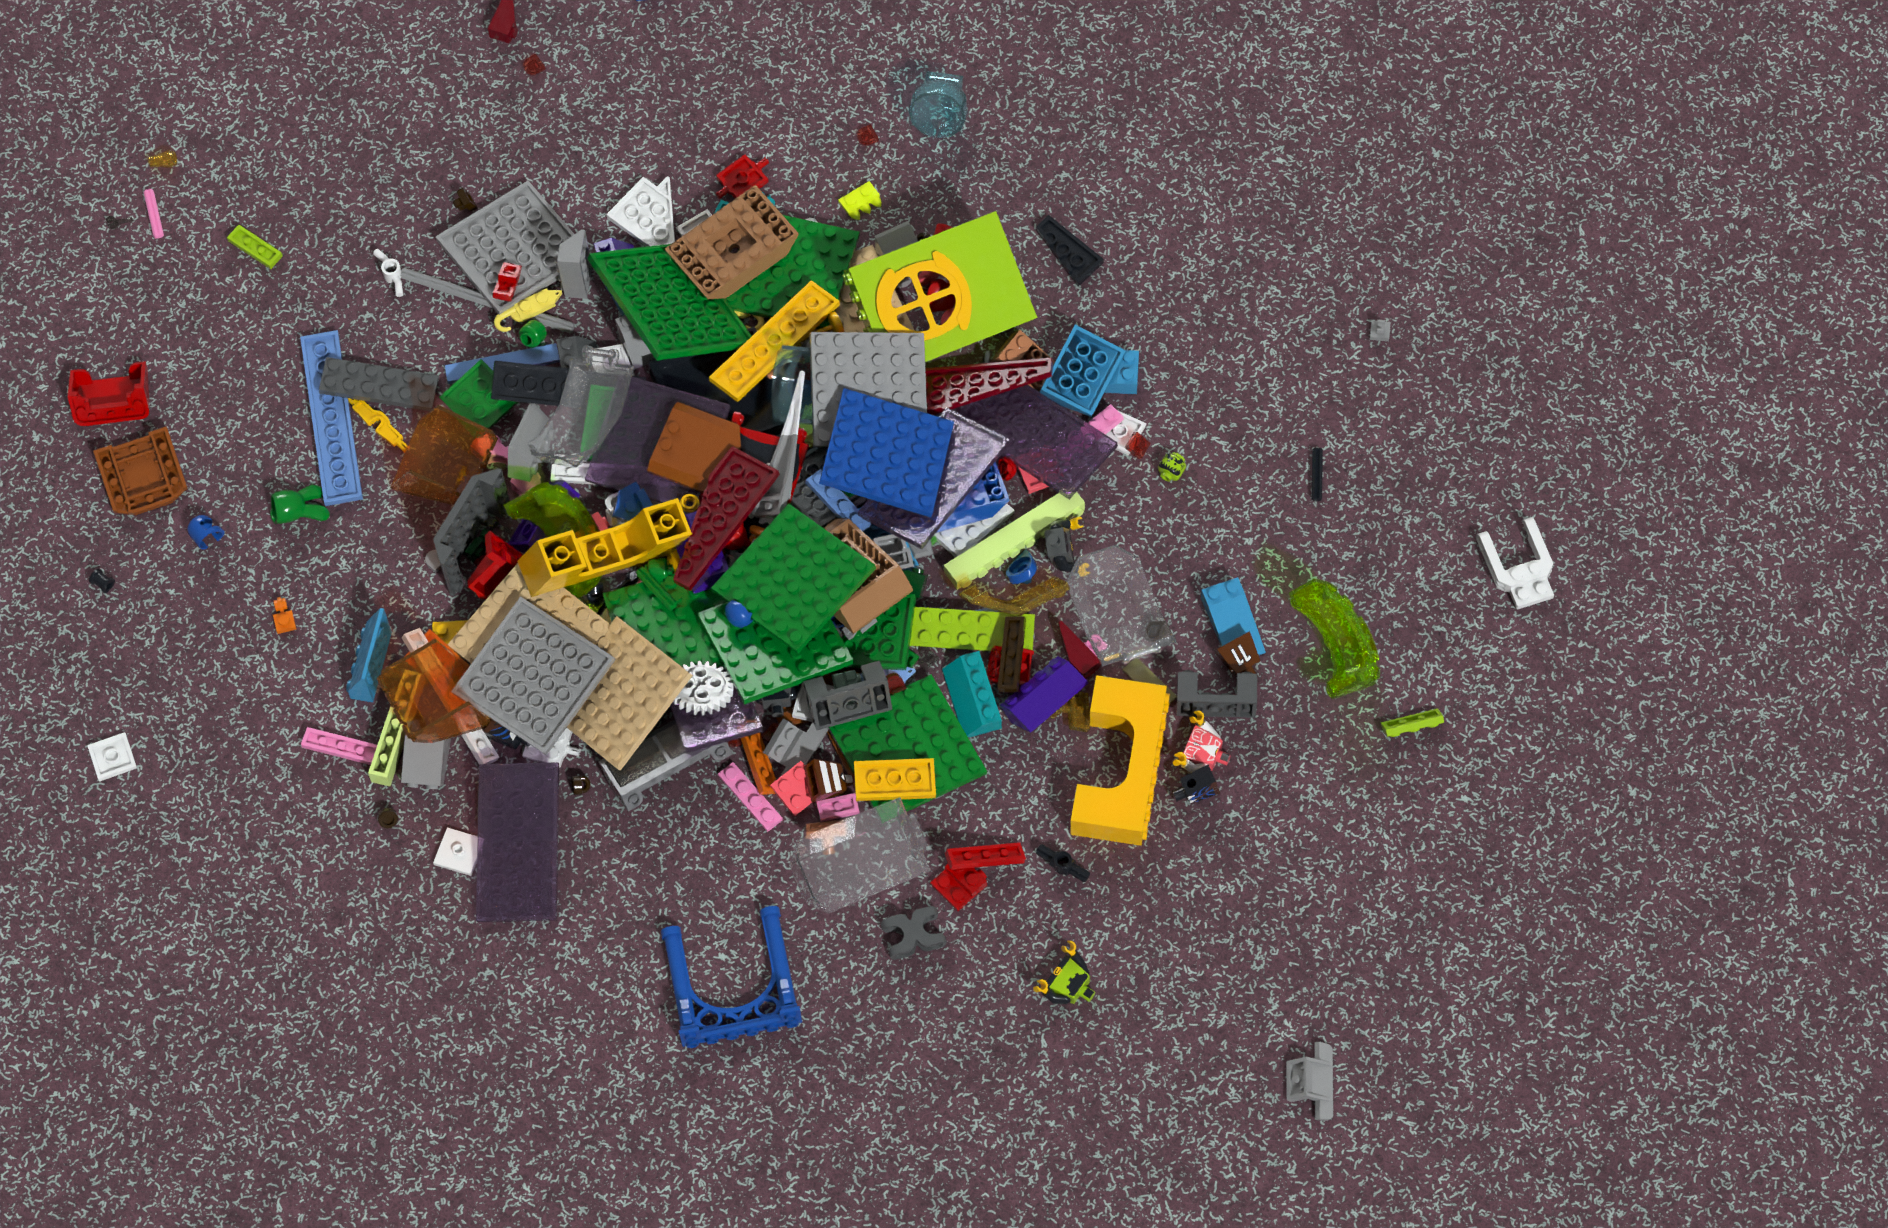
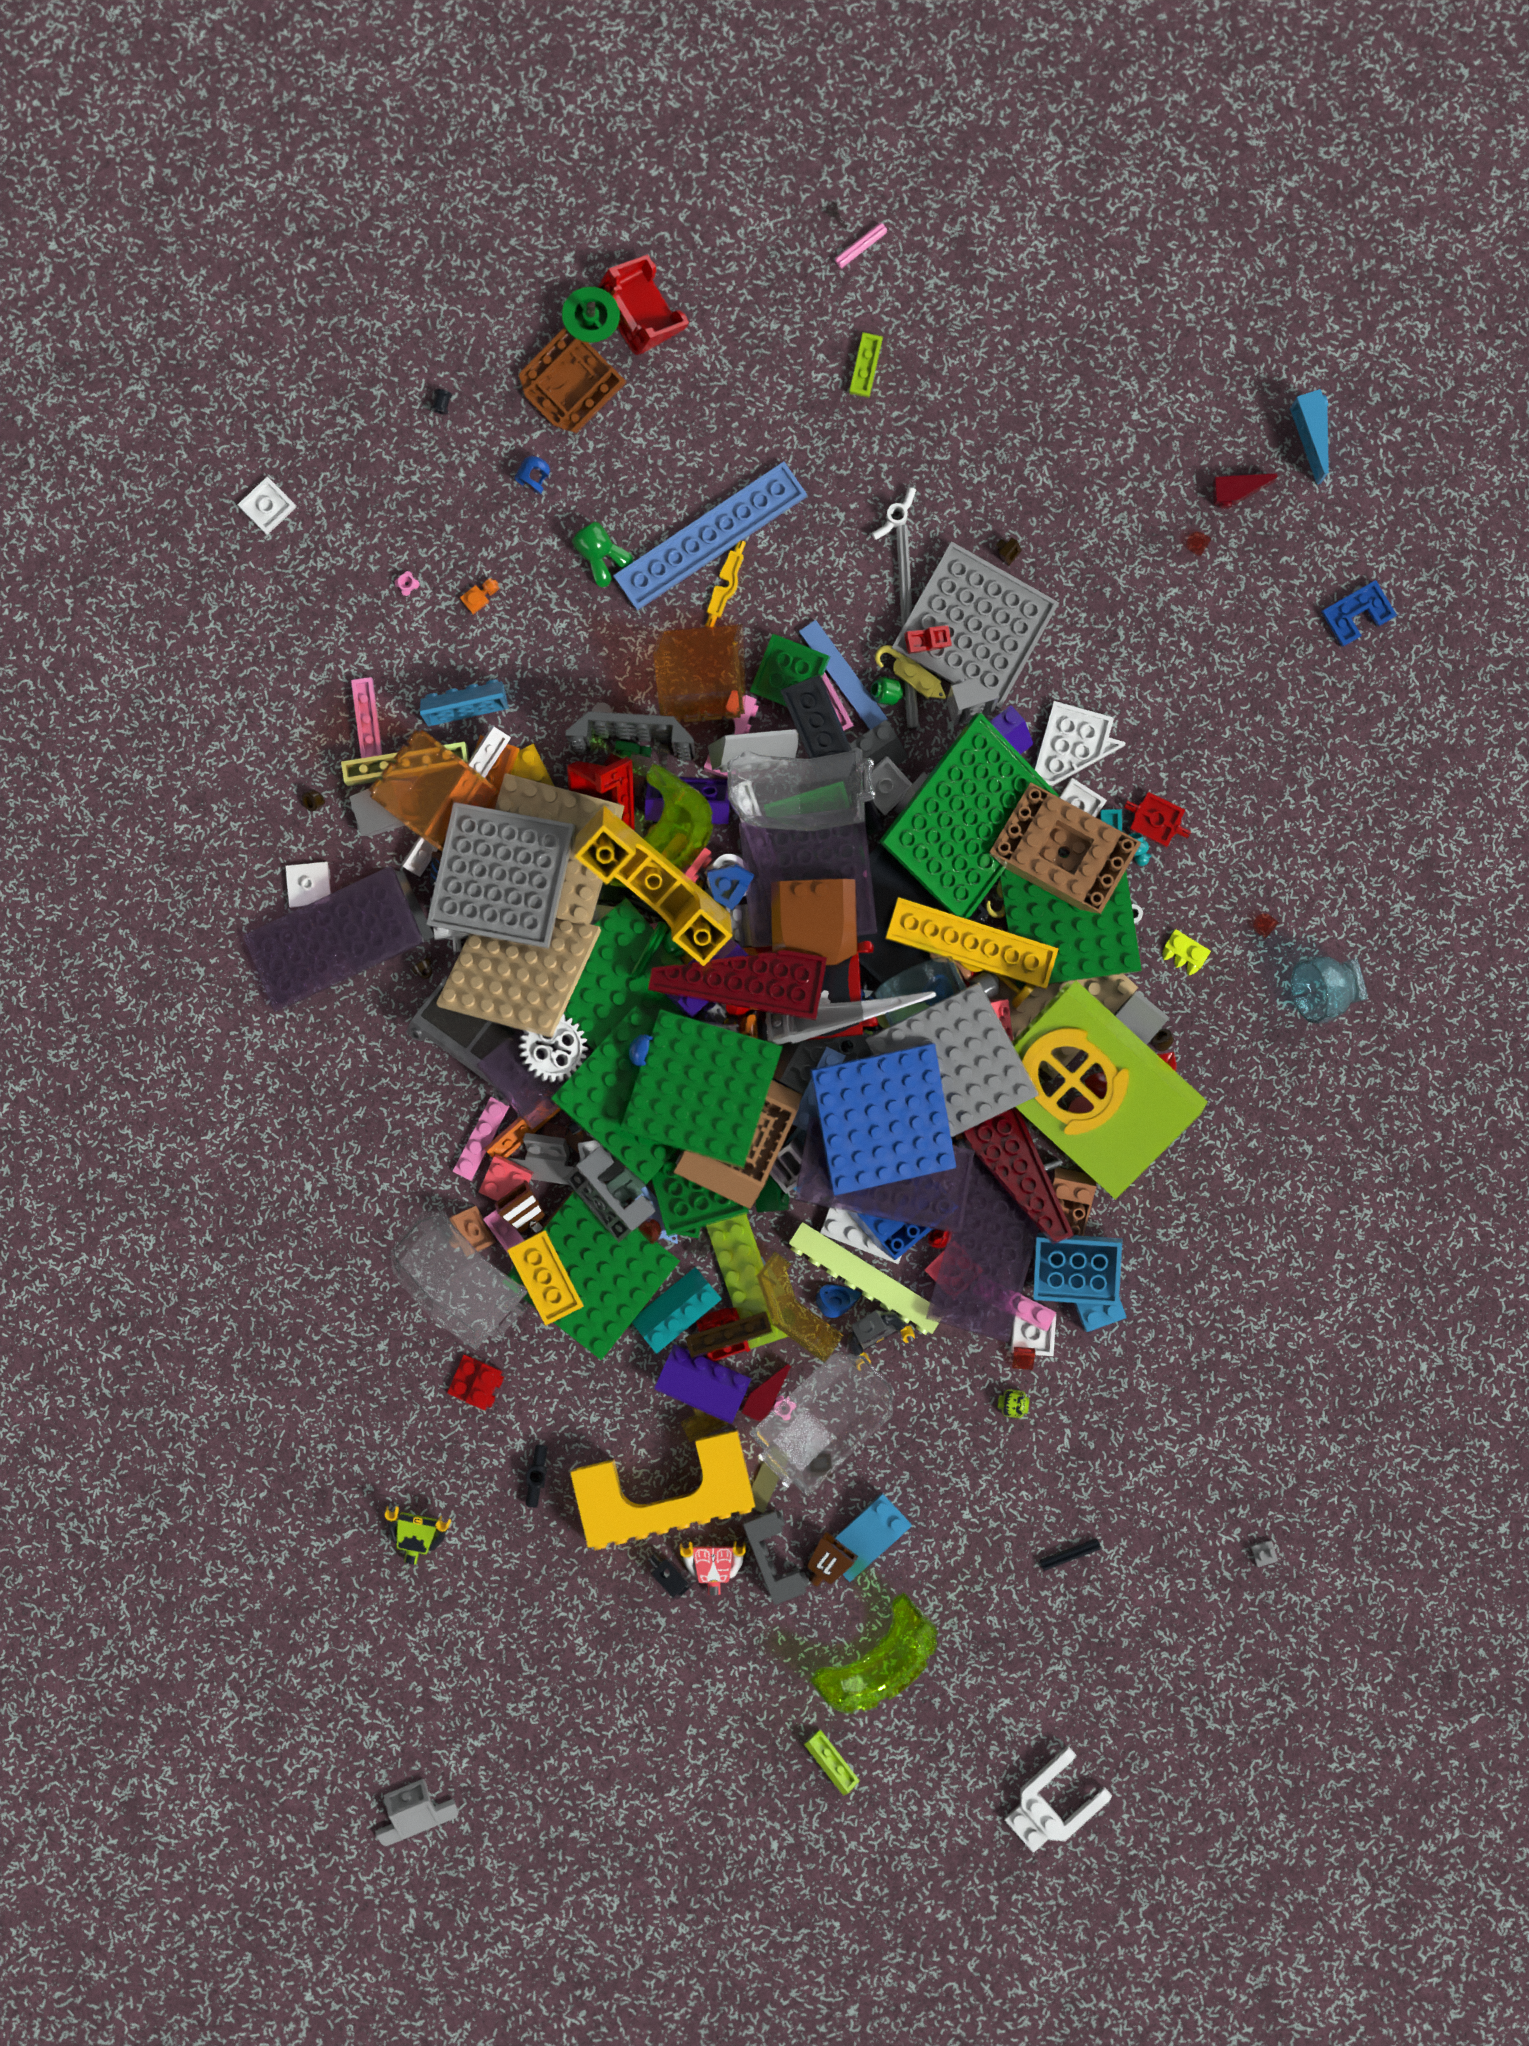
camera: 65 degrees right, 20 degrees up
(96, 430) = (590, 314): none -> green piece
(164, 159) = (925, 225): clear yellow cone -> none
(241, 665) = (406, 577): none -> bright pink plate
(378, 384) = (765, 565): dark grey plate -> none
(689, 497) = (749, 937): yellow plate -> none
(692, 1029) = (250, 1171): blue arch -> none
(913, 932) = (404, 1361): dark grey piece -> none
(985, 856) = (507, 1399): red plate -> none
(1070, 251) = (1217, 1196): black wing -> none

